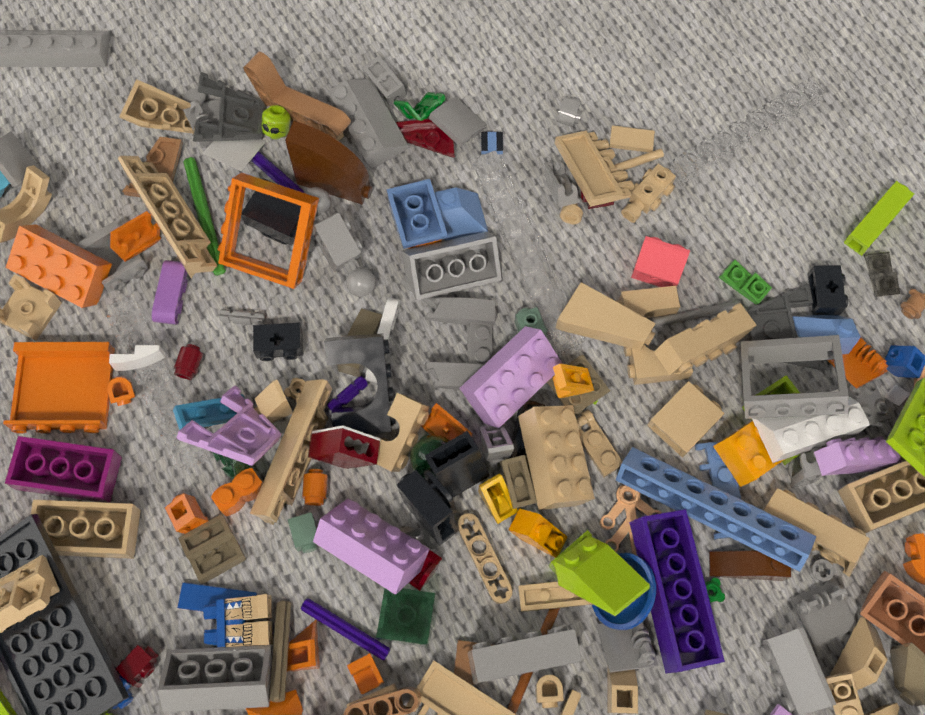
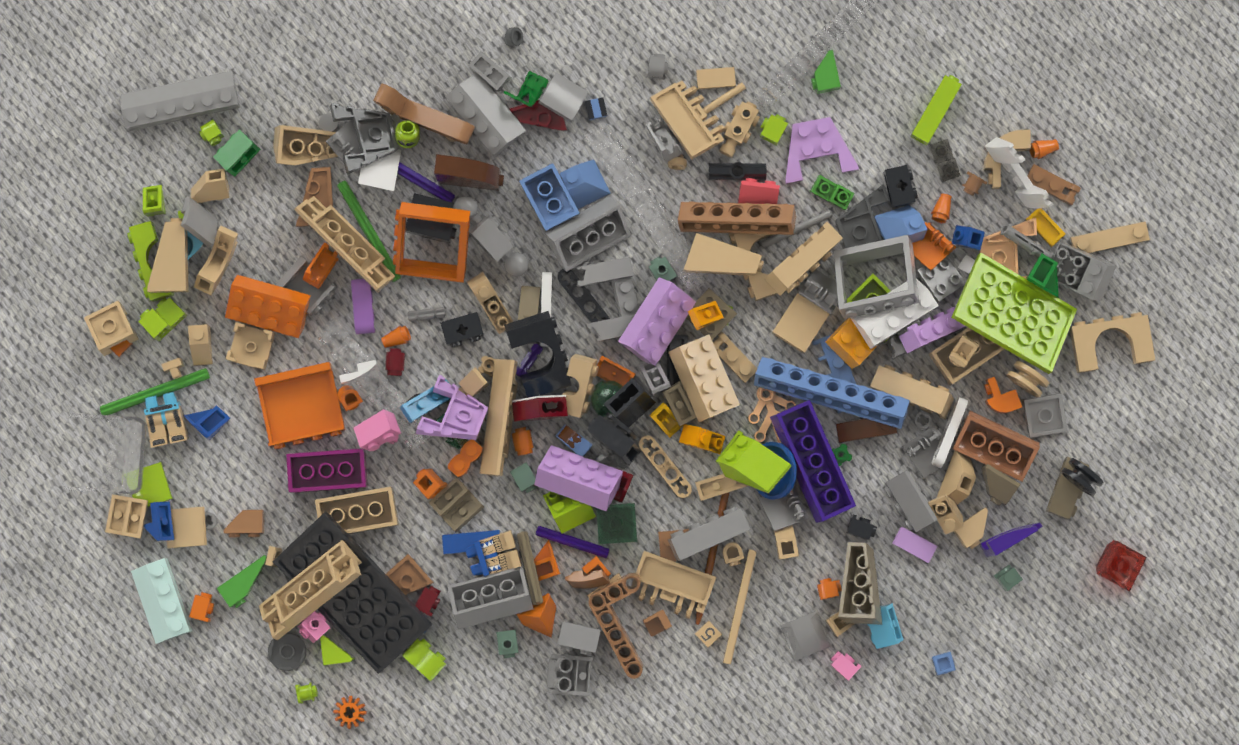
camera: 10 degrees left, 15 degrees up
(44, 131) = (211, 186): none -> tan slope
(65, 82) = (211, 132): none -> lime plate
(83, 101) = (236, 153): none -> brick
(122, 627) = (409, 575): none -> medium nougat wing
(138, 432) = (377, 430): none -> bright pink brick
(199, 334) = (396, 337): none -> orange cone
(318, 315) = (490, 302): none -> tan slope
(343, 682) = (580, 579): none -> medium nougat slope
(348, 587) = (567, 511): none -> lime slope
(378, 500) = (573, 440): none -> leg
(419, 55) = (513, 36): none -> dark grey tile
(431, 338) = (581, 301): none -> black beam
(625, 234) = (723, 171): none -> black piece
(633, 280) = (737, 218): none -> medium nougat brick
(688, 200) = (773, 128): none -> lime brick
(718, 387) = (821, 291): none -> light grey hinge
(724, 694) = (861, 528): none -> black brick
(734, 224) = (816, 140): none -> lavender wing
(758, 158) = (826, 75): none -> bright green slope
(857, 593) = (949, 432): none -> white beam
(873, 327) = (941, 211): none -> orange cone
(893, 489) = (963, 351): none -> tan bracket

